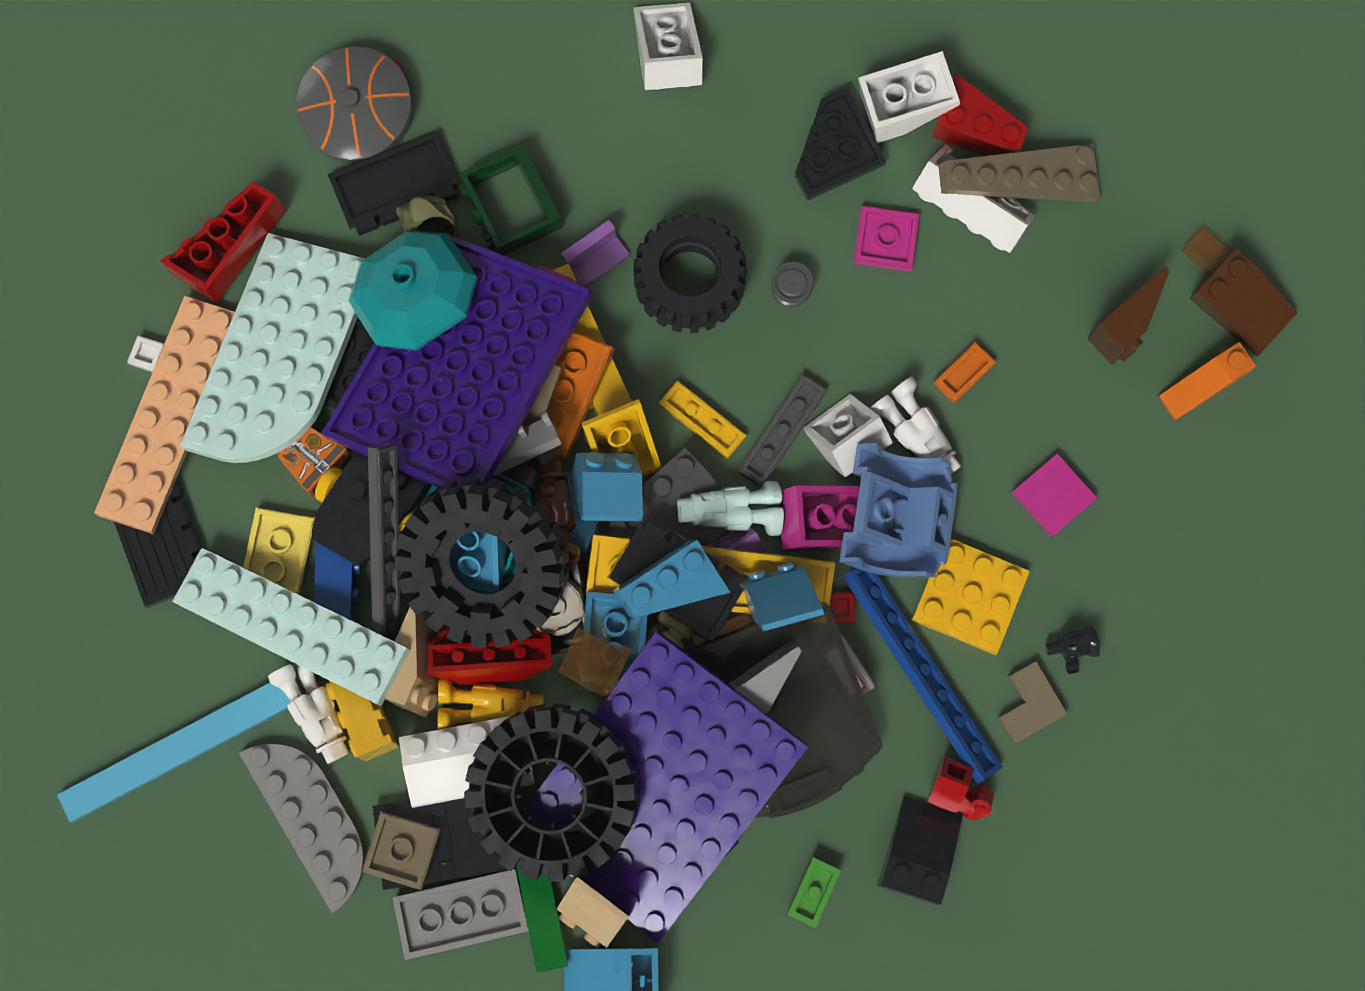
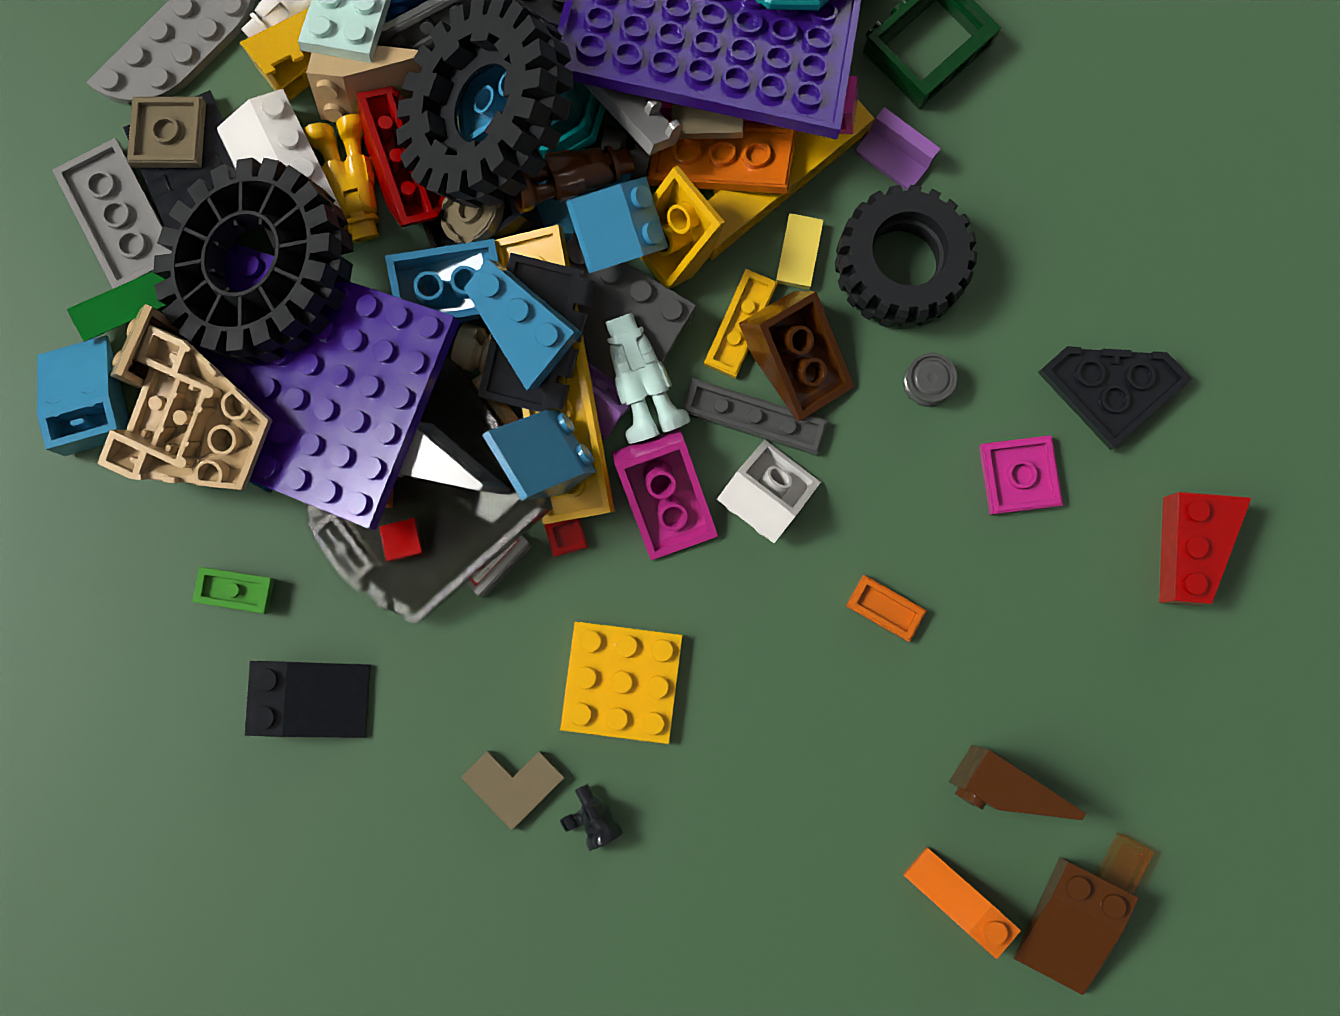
camera: 75 degrees right, 5 degrees up
(593, 663) = (406, 260): clear orange piece -> none
(655, 356) = (799, 251): none -> light yellow tile
(668, 46) = (1172, 161): white slope -> none
(675, 880) = (187, 422): none -> tan wedge
(741, 380) = (798, 352): none -> reddish brown slope
(814, 736) = (401, 540): none -> red tile
(900, 514) = (689, 572): medium blue piece -> none
(907, 95) = (1204, 448): white slope -> none
(922, 431) = (795, 573): white piece -> none
(923, 673) = (513, 649): blue plate -> none
(952, 791) = (383, 718): red brick -> none
(996, 218) = (1100, 561): white wedge -> none
(1037, 174) = (1155, 630): dark tan wing -> none
(1054, 495) = (768, 751): dark pink tile -> none

